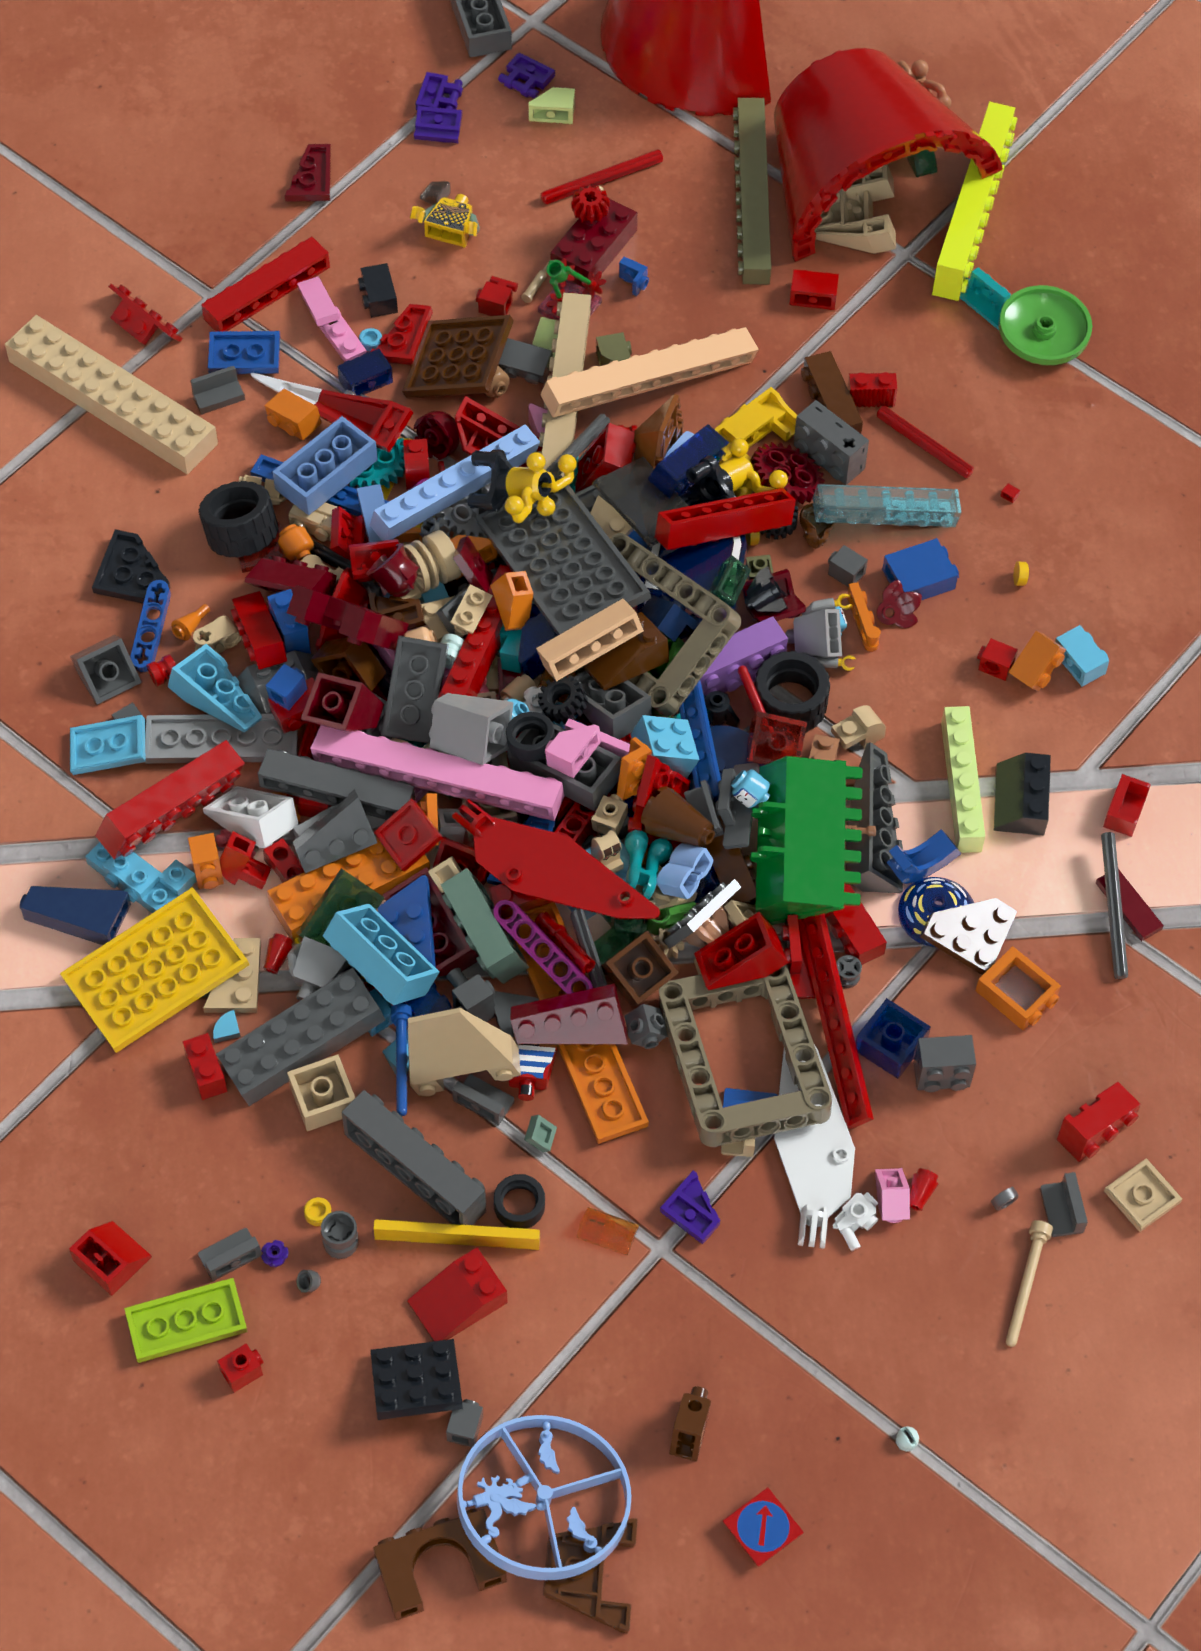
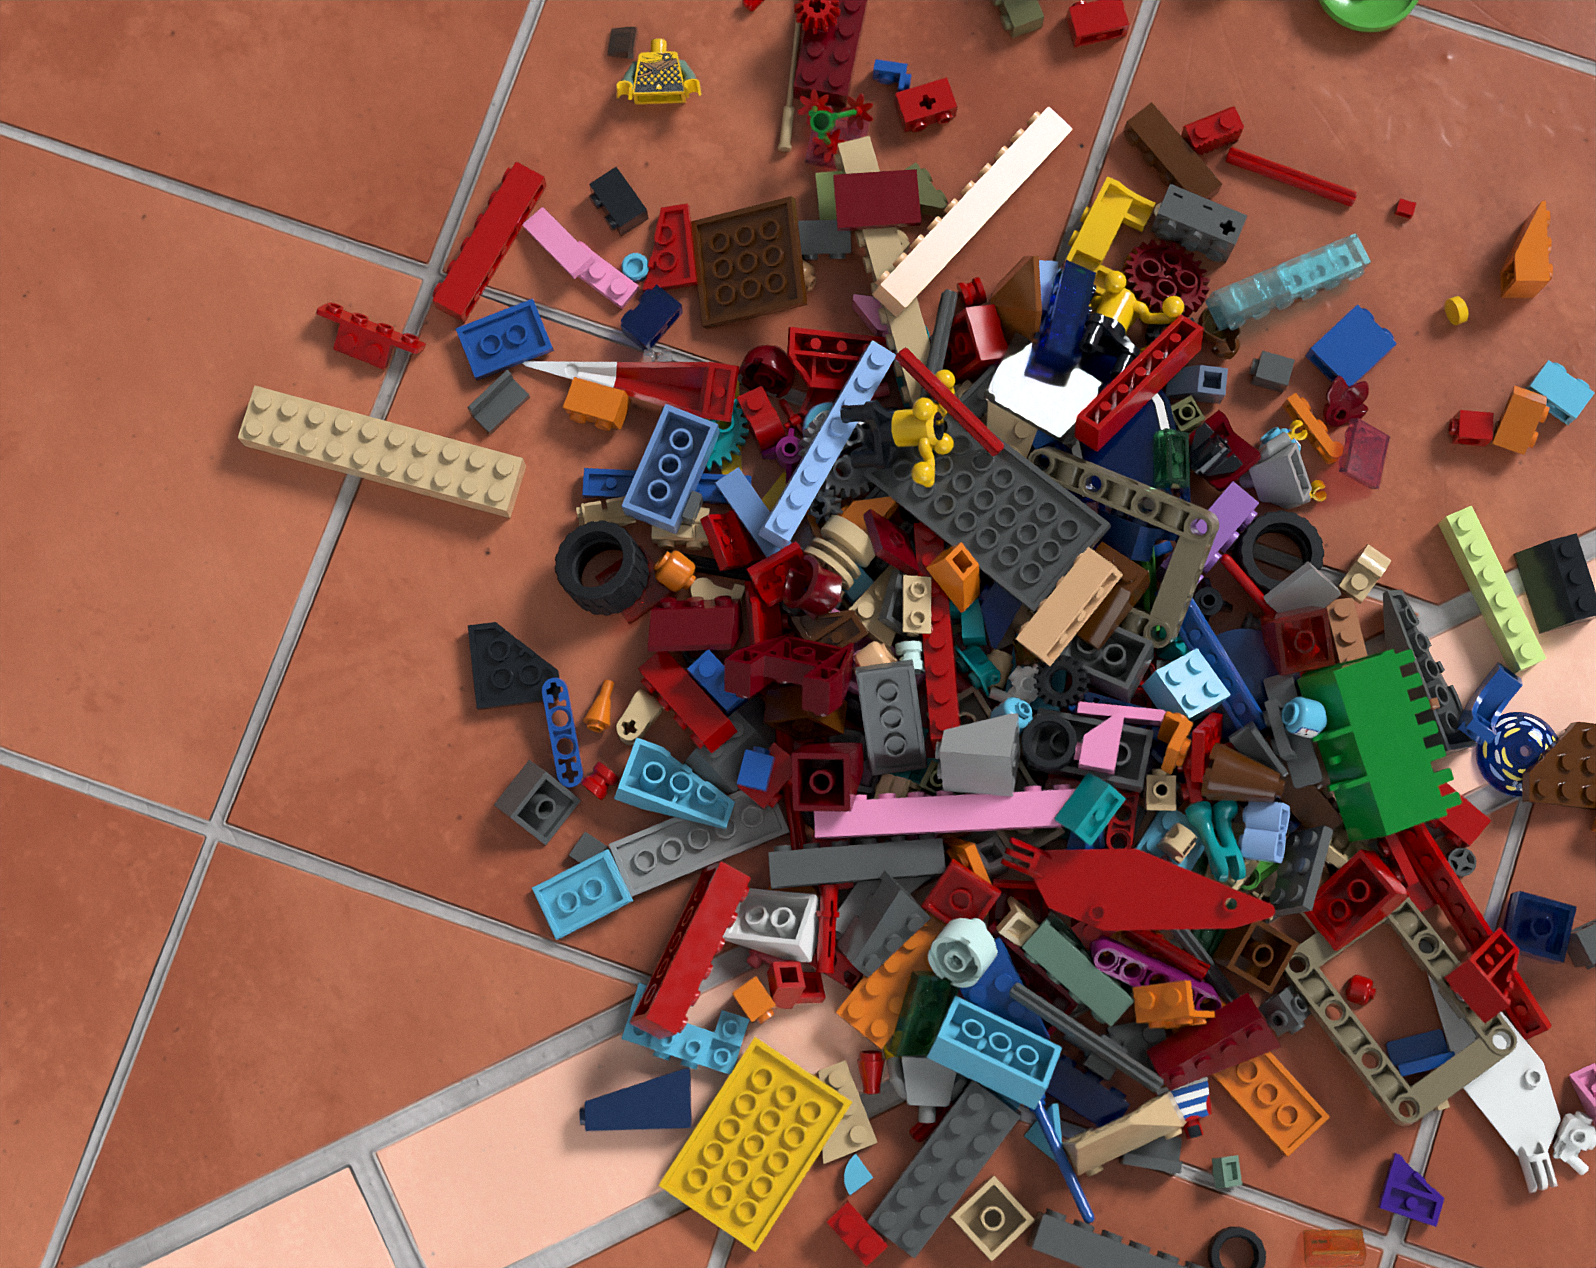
camera: 20 degrees left, 20 degrees up
(303, 803) = (827, 928): none -> red pin
(313, 176) = (476, 73): dark red wing -> none
(329, 499) = (692, 508): none -> dark grey tile
(389, 867) = (962, 951): none -> light aqua brick
(462, 968) = (1086, 1037): none -> dark grey axle
(496, 296) = (752, 163): red brick -> none
(502, 680) = (980, 669): none -> teal hinge
(537, 967) = (1168, 1005): none -> orange bracket
(541, 790) = (1090, 808): none -> teal panel
(563, 476) = (949, 402): none -> red axle
(575, 336) = (877, 200): none -> dark red tile
(650, 302) = (934, 95): none -> red brick
(721, 1041) = (1360, 990): none -> red piece
(784, 553) = (1201, 382): none -> sand blue slope
(801, 706) = (1302, 589): none -> light grey tile
(822, 1032) = (1486, 974): none -> red wedge
(897, 644) = (1364, 453): none -> clear pink tile
(1093, 550) = (1527, 264): none -> orange slope

